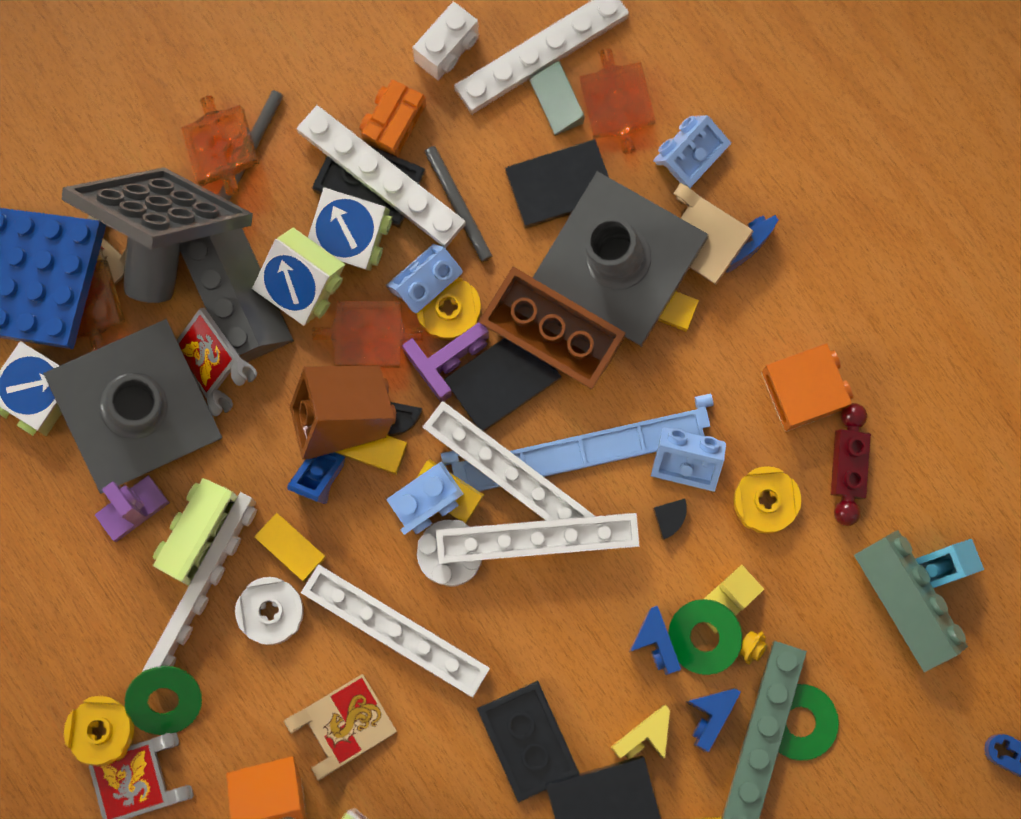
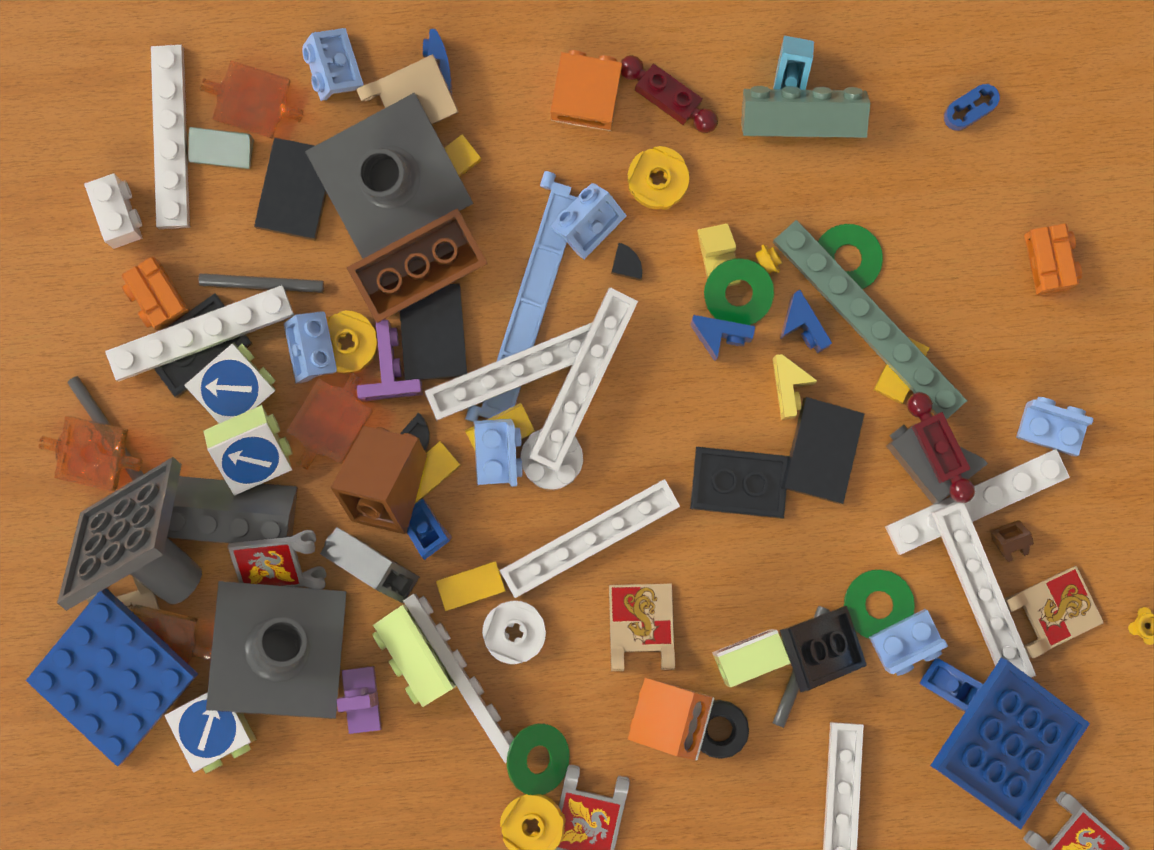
camera: 60 degrees left, 5 degrees up
(256, 444) = (369, 565): none -> slope

